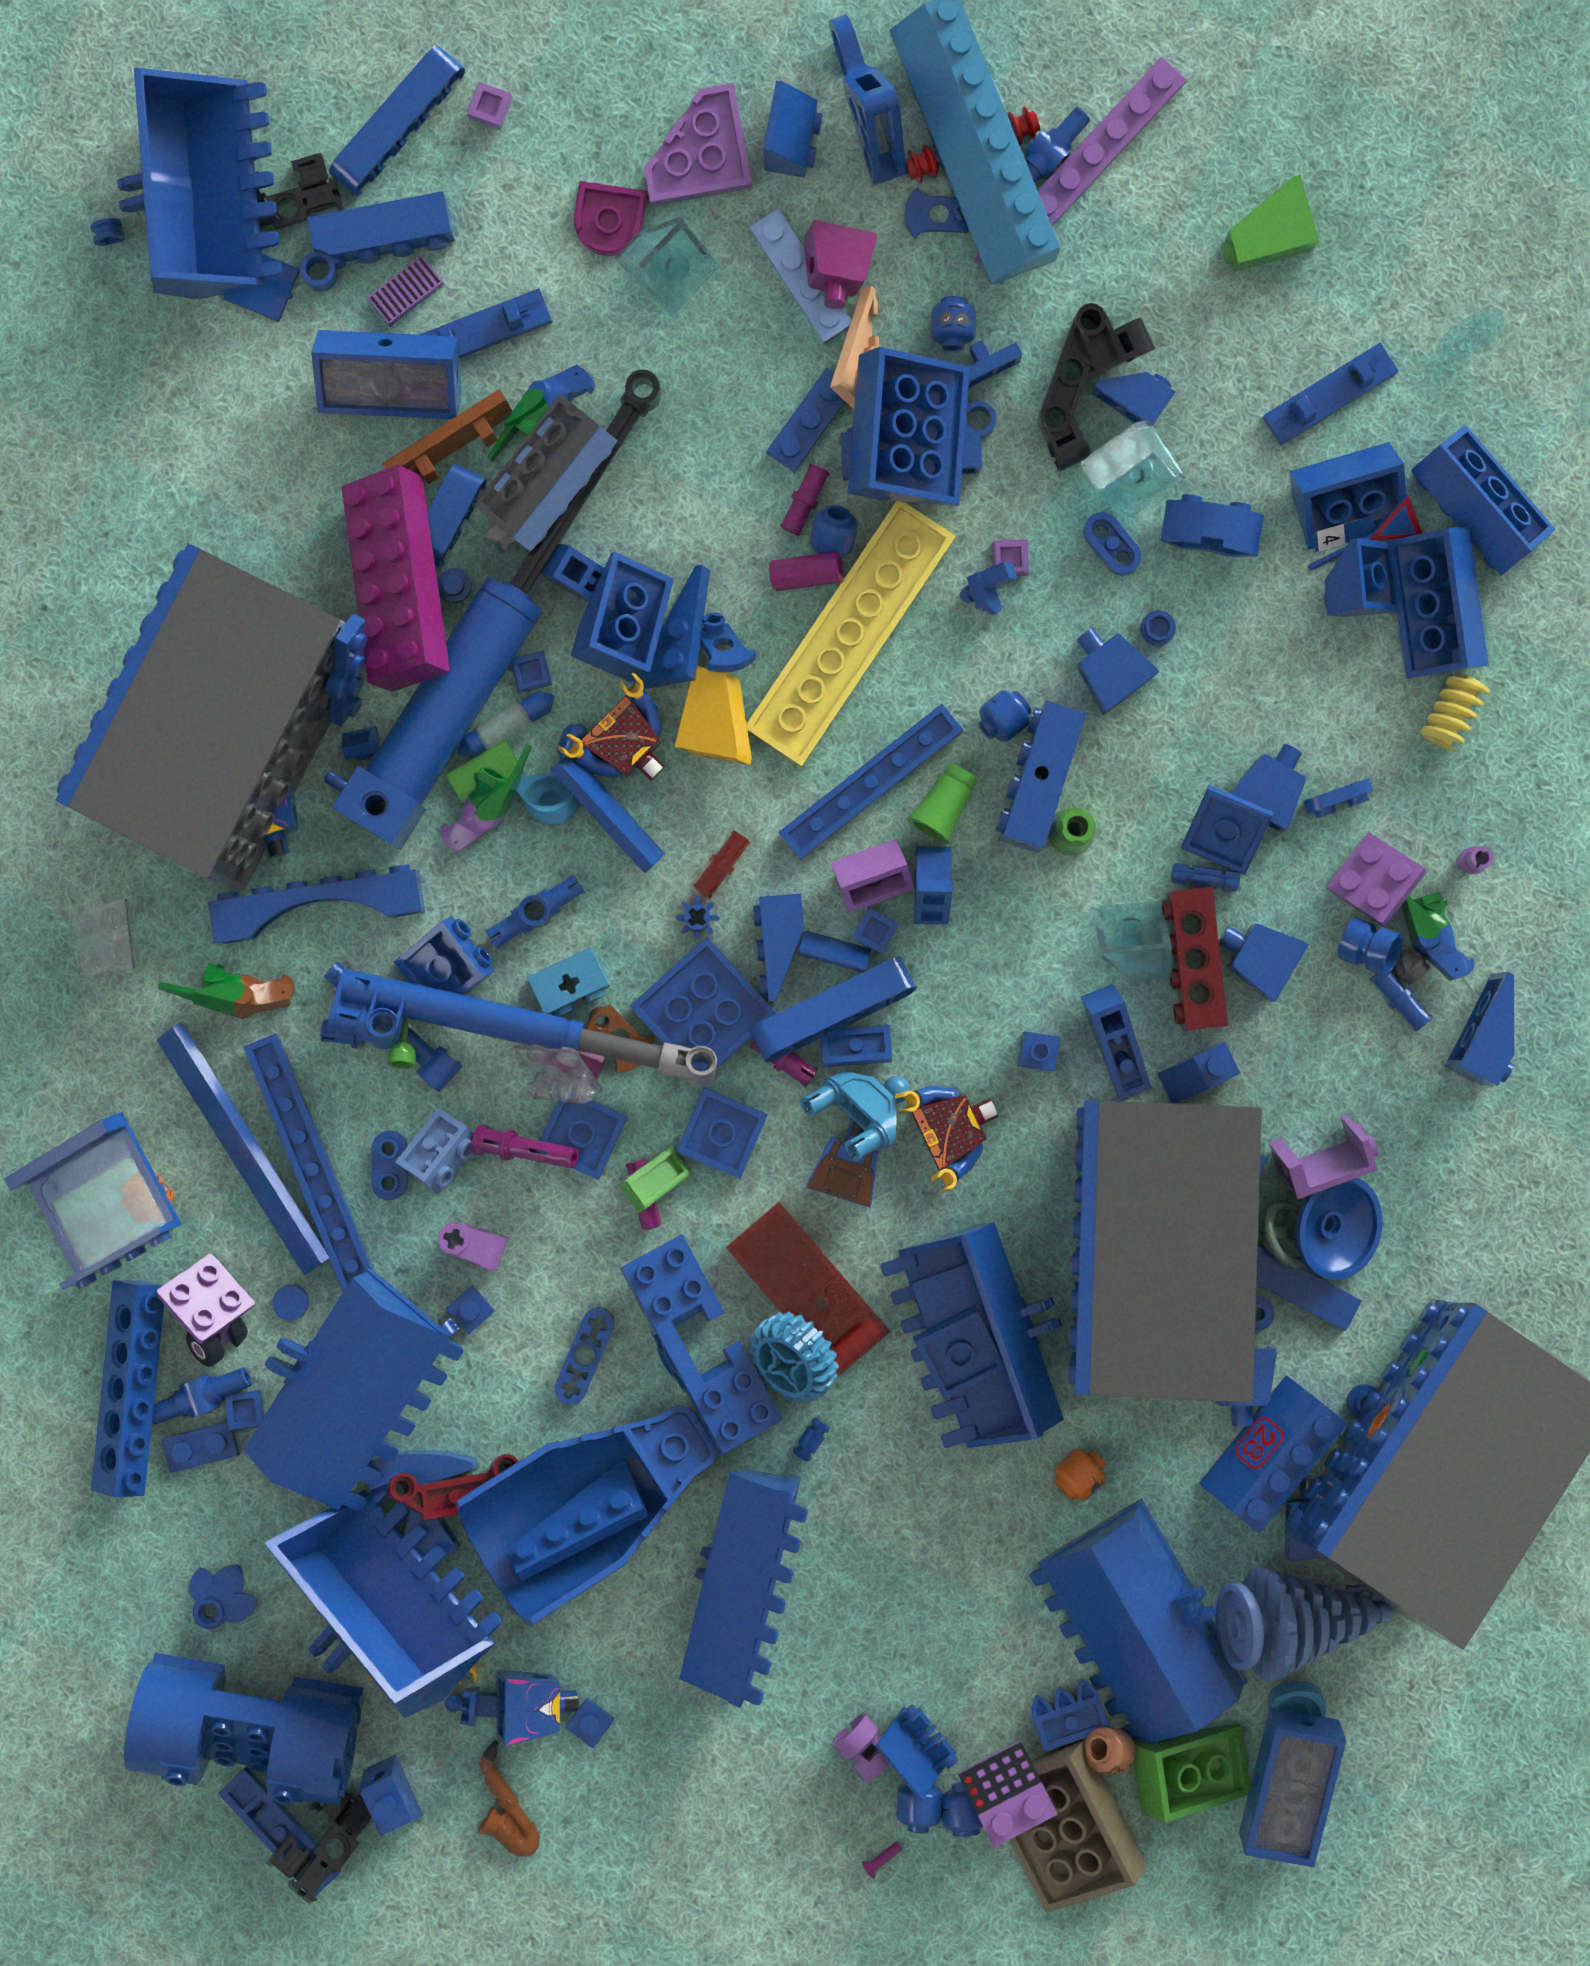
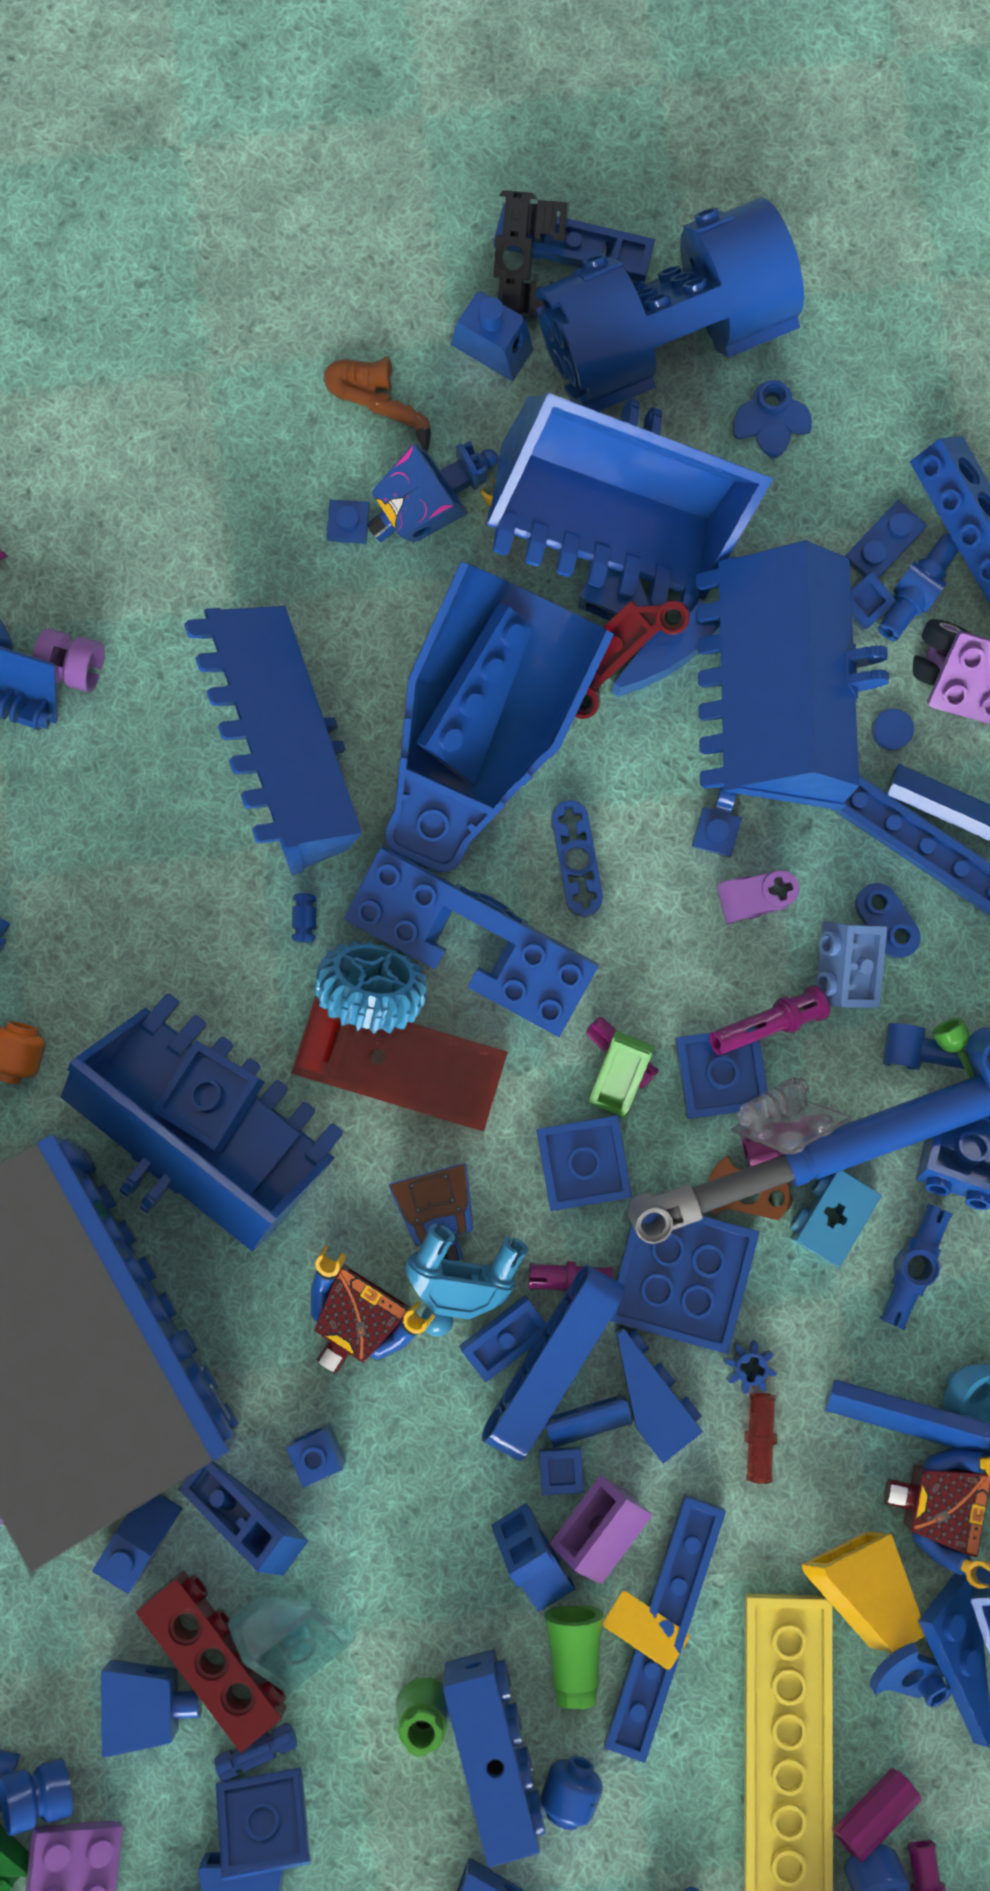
camera: 145 degrees right, 5 degrees down
(888, 792) = (638, 1627): none -> yellow sticker

